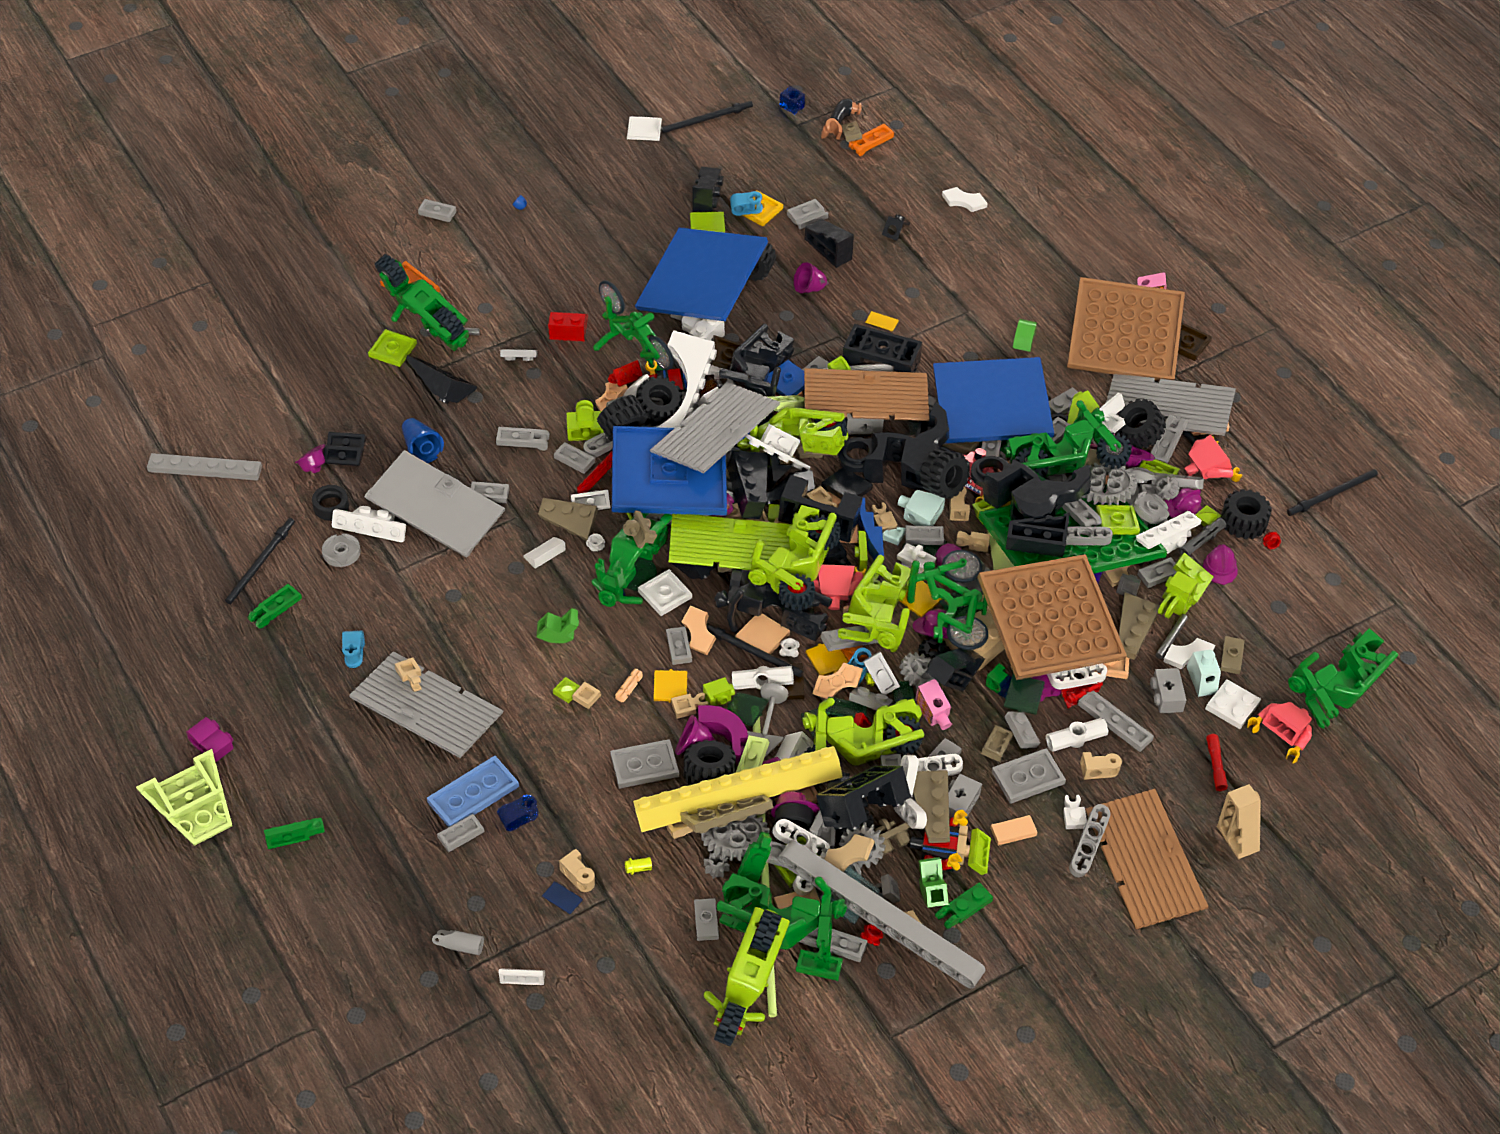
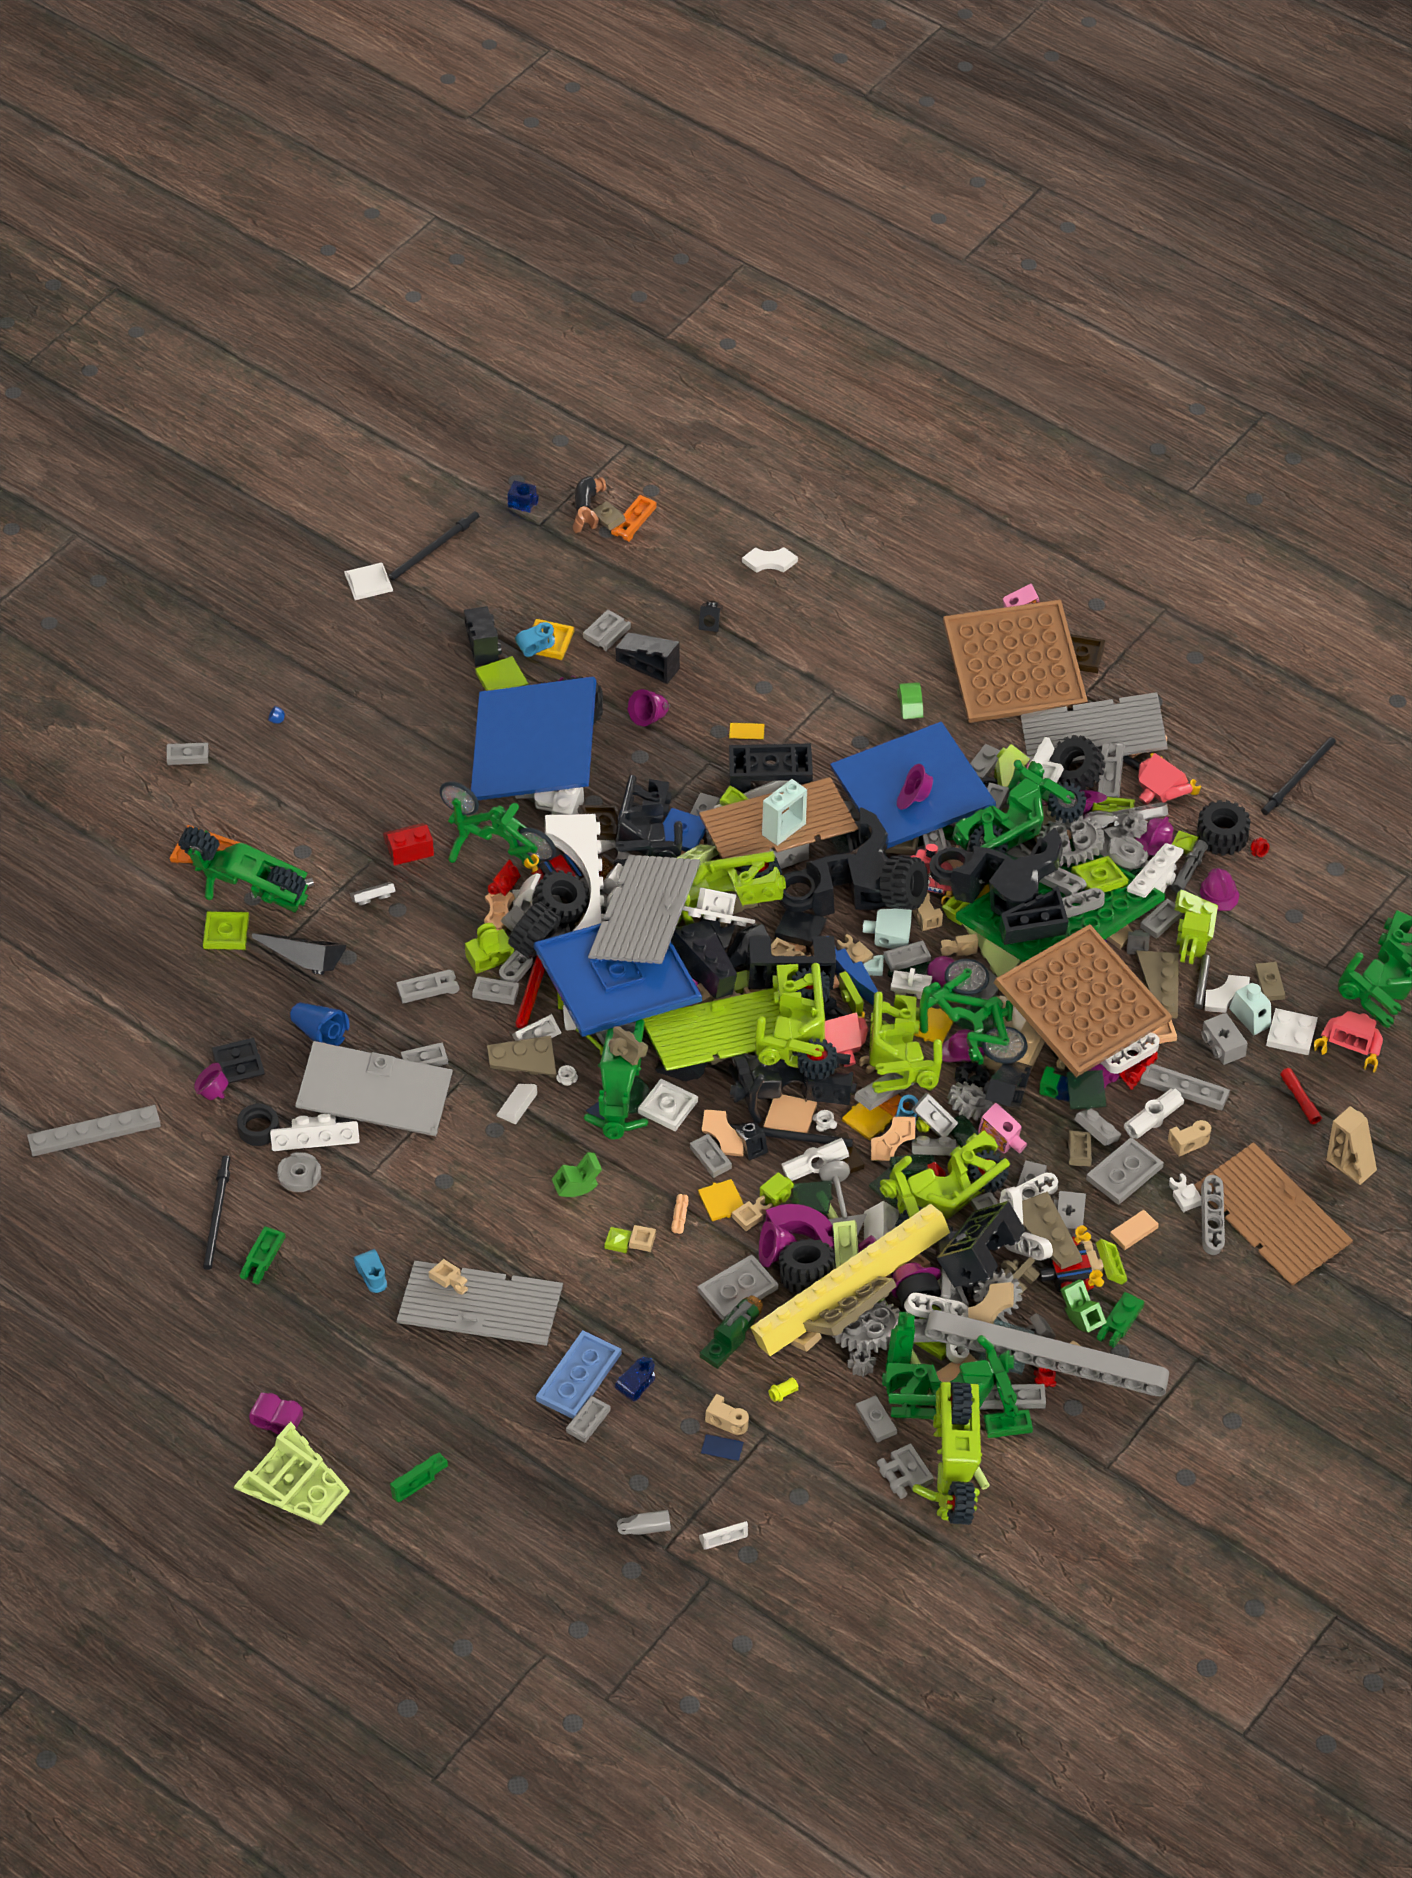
camera: 20 degrees left, 0 degrees up
(617, 799) = (731, 1331): none -> dark green plate
(714, 975) = (911, 1468): none -> light grey plate
(718, 644) = (753, 1140): none -> black bracket
(873, 397) = (780, 826): none -> light aqua window
(992, 401) = (916, 787): none -> magenta piece

